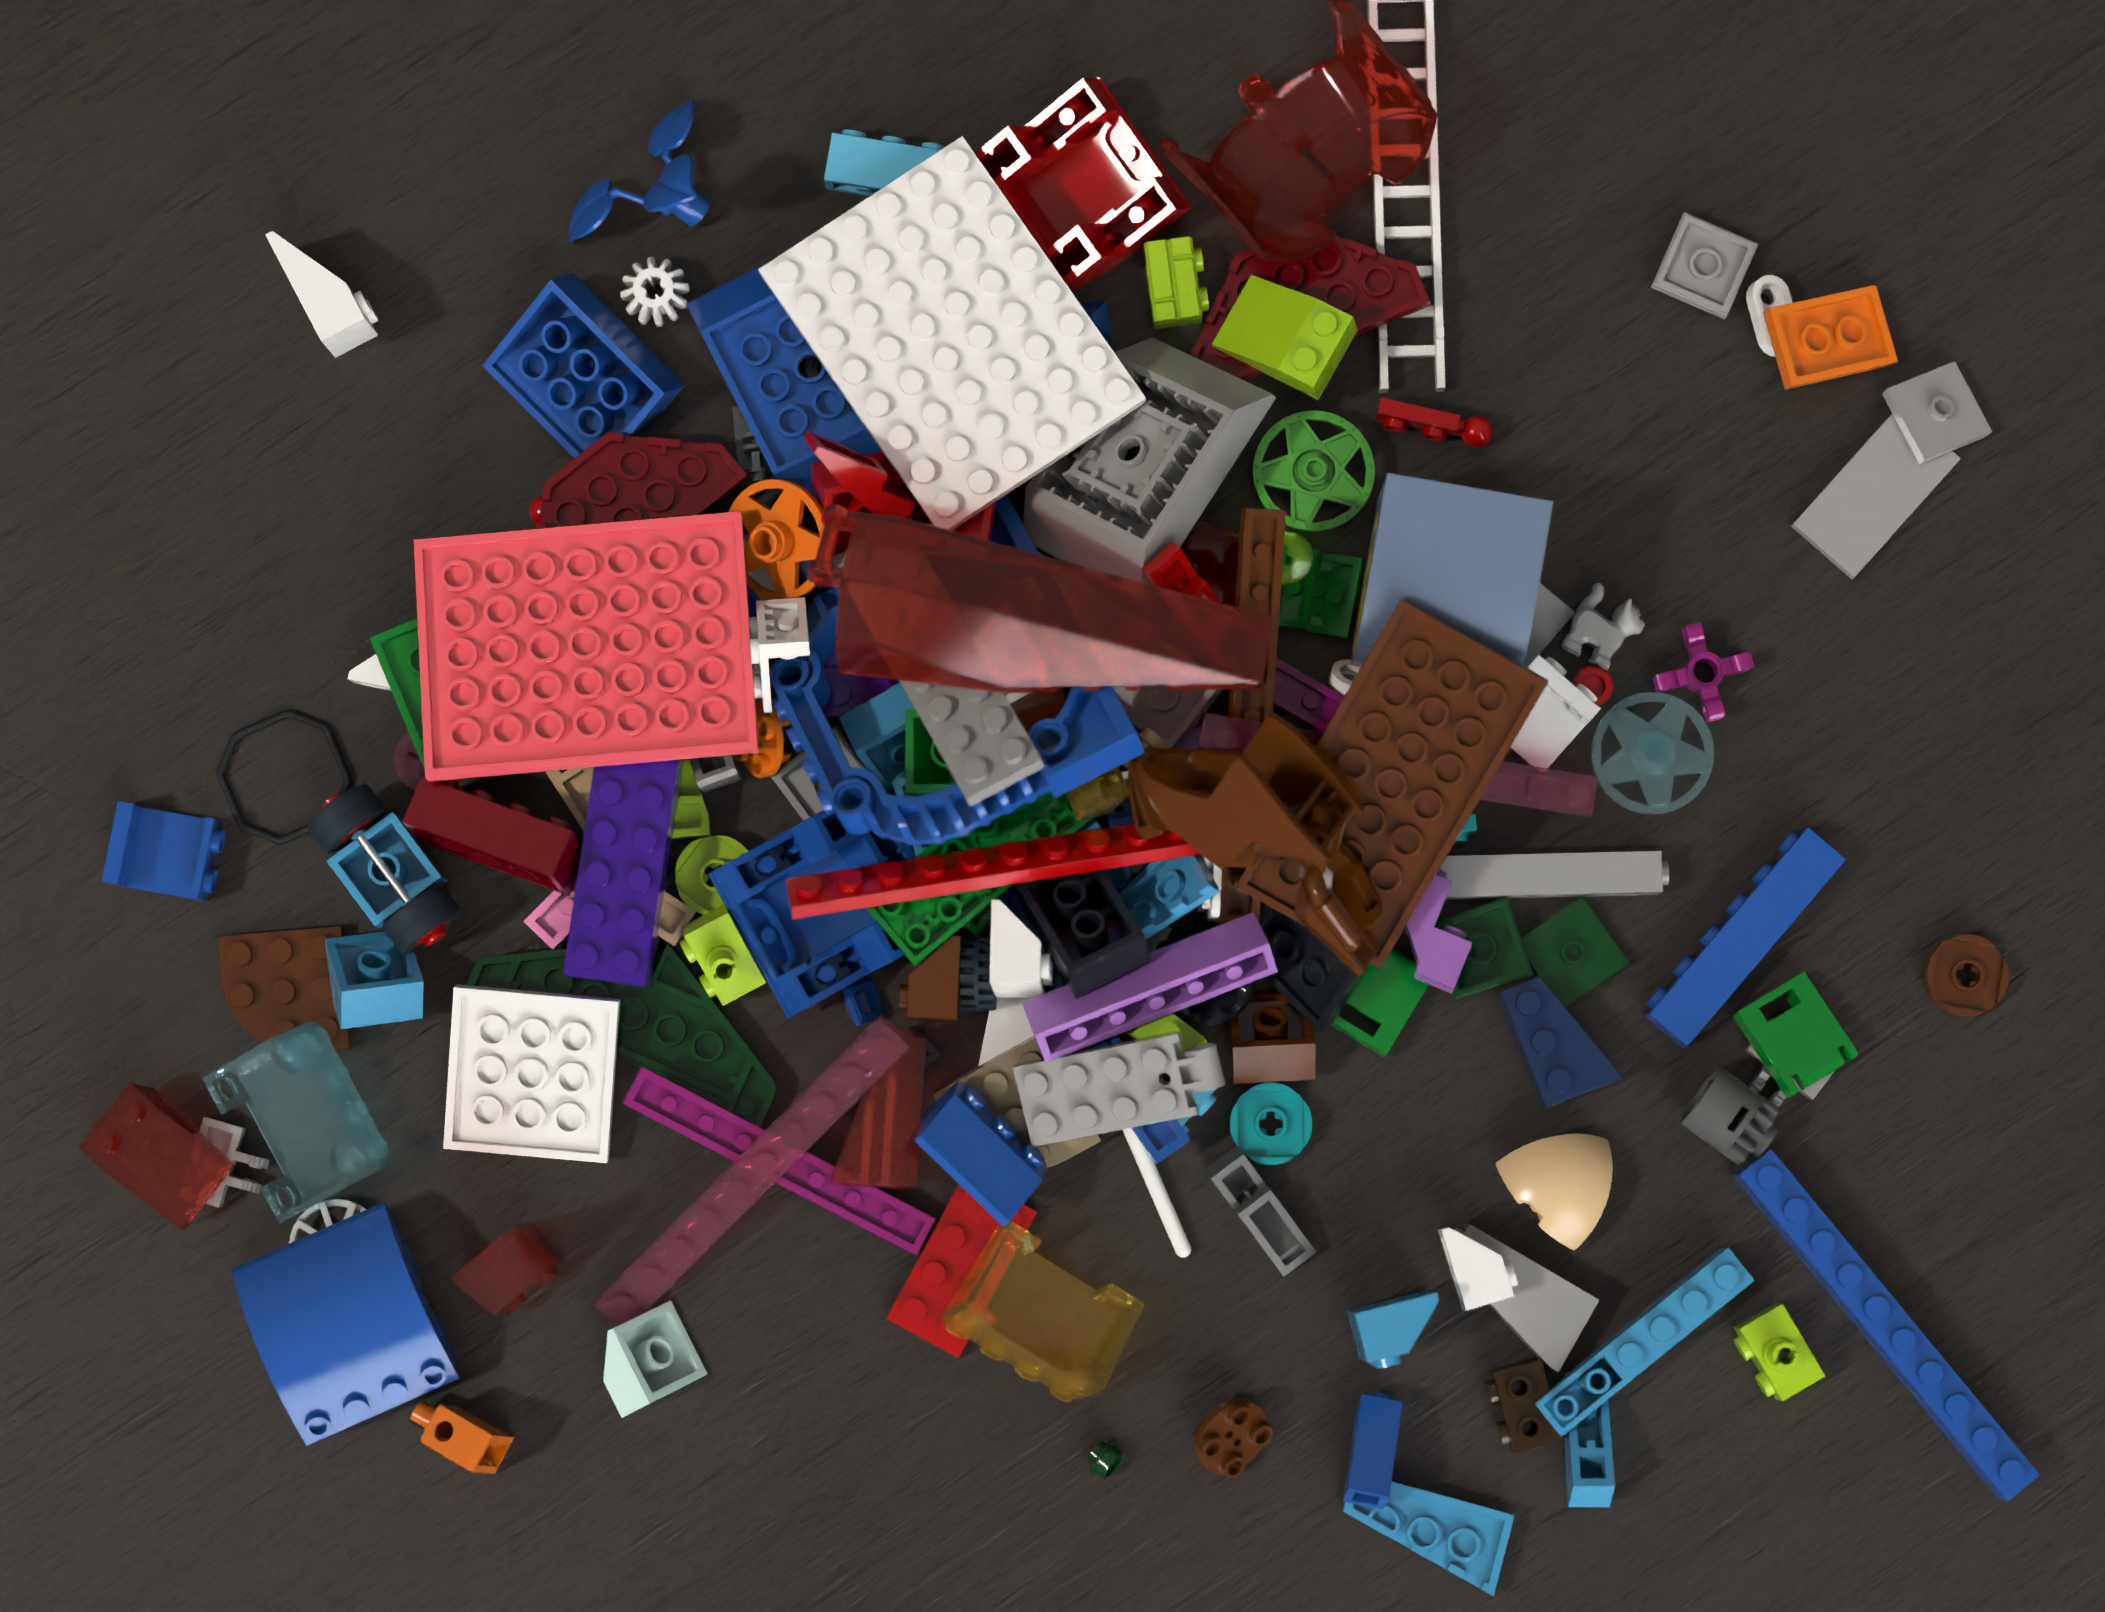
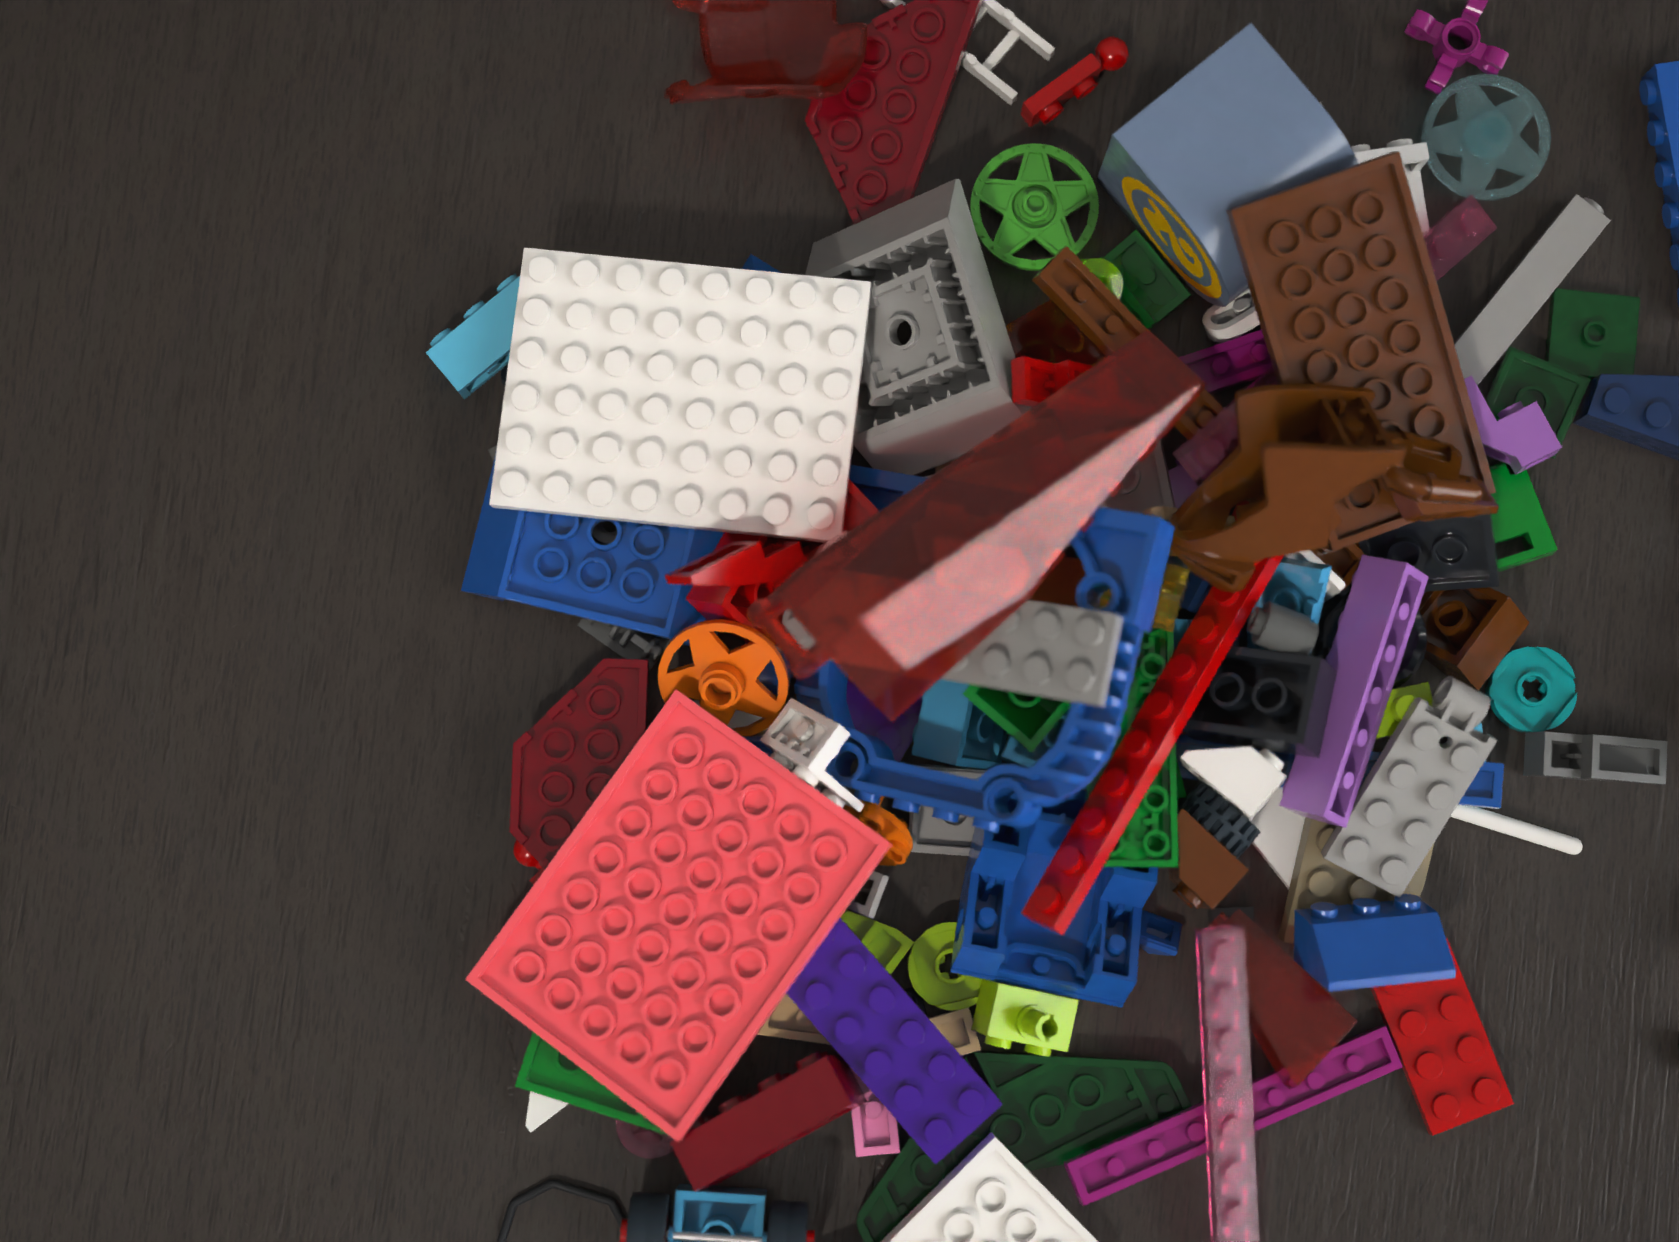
camera: 50 degrees left, 0 degrees up
(335, 311) = (209, 881): white slope -> none
(581, 368) = (439, 721): blue slope -> none
(649, 277) = (412, 602): white gear -> none
(669, 194) = (363, 518): blue plant -> none
(1041, 1316) = (1544, 1006): clear yellow windscreen -> none
(1084, 182) = (642, 185): red slope -> none
(1144, 895) = (1282, 629): none -> dark grey brick
(1174, 282) = (785, 187): lime brick -> none
(1286, 335) = (908, 132): lime slope -> none
(1597, 681) = (1389, 130): red tile -> none
(1598, 632) = (1354, 96): light grey animal -> none

